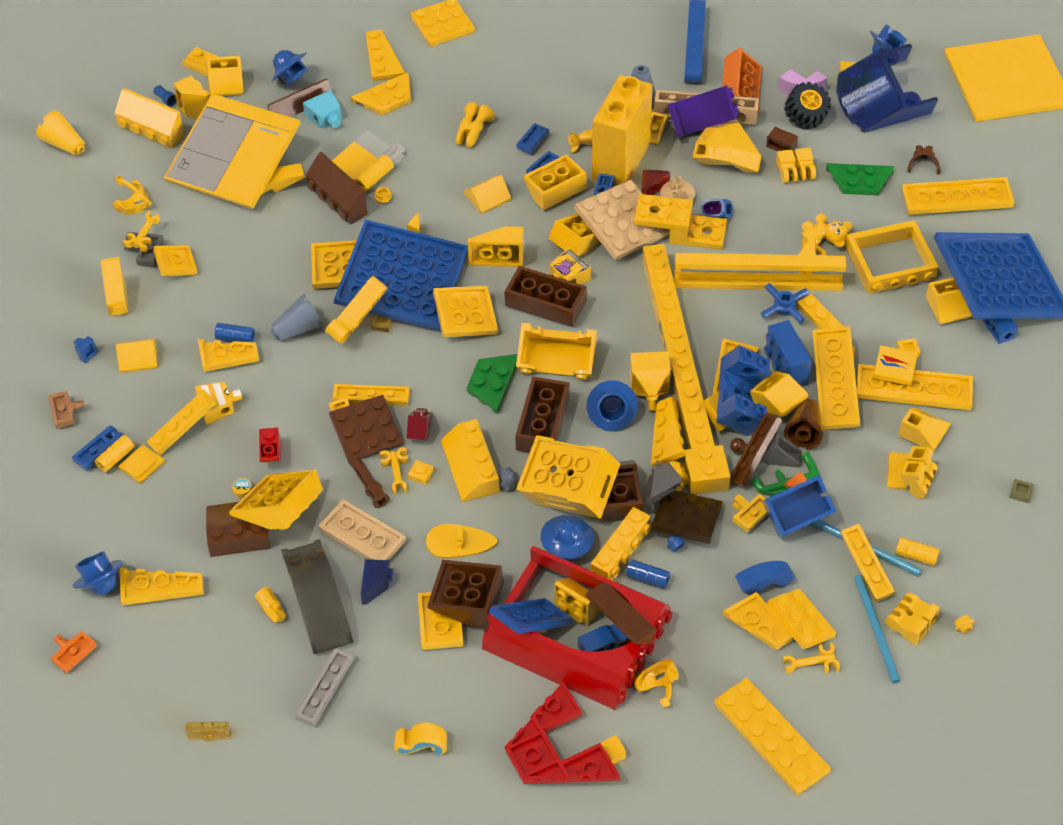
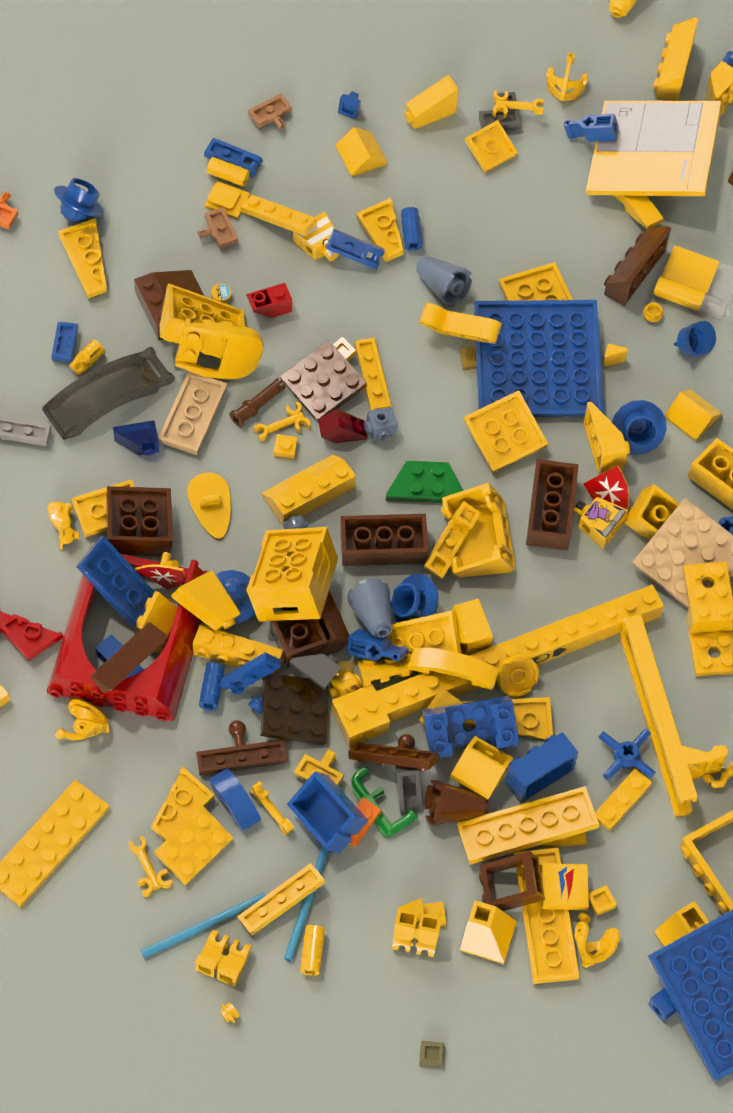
camera: 70 degrees right, 10 degrees up
(172, 473) = (219, 228): none -> medium nougat plate
(193, 185) = (593, 127): none -> blue piece
(242, 373) = (354, 248): none -> blue plate
(246, 621) = (64, 342): none -> blue plate
(314, 465) = (240, 353): none -> yellow slope
(420, 175) = (696, 339): none -> blue piece
(426, 394) = (381, 423): none -> sand blue brick
(441, 658) = (59, 517): none -> yellow animal
(492, 217) = (641, 425): none -> blue helmet
(529, 577) = (165, 574): none -> shield
(542, 361) = (451, 539): none -> yellow slope
(543, 254) = (610, 487): none -> red shield
(577, 543) = (208, 601): none -> yellow slope
(613, 432) = (372, 606): none -> sand blue cone
(646, 443) = (366, 646): none -> blue piece
(648, 402) = (431, 631): none -> yellow wing
(651, 535) = (250, 673): none -> blue plate
(684, 388) = (454, 664): none -> yellow slope
(698, 354) = (517, 675): none -> yellow tile
(722, 566) = (241, 755): none -> reddish brown plate
(770, 552) = (262, 797): none -> yellow bar
(887, 378) = (532, 878): none -> reddish brown window
(946, 359) = (604, 947): none -> yellow helmet

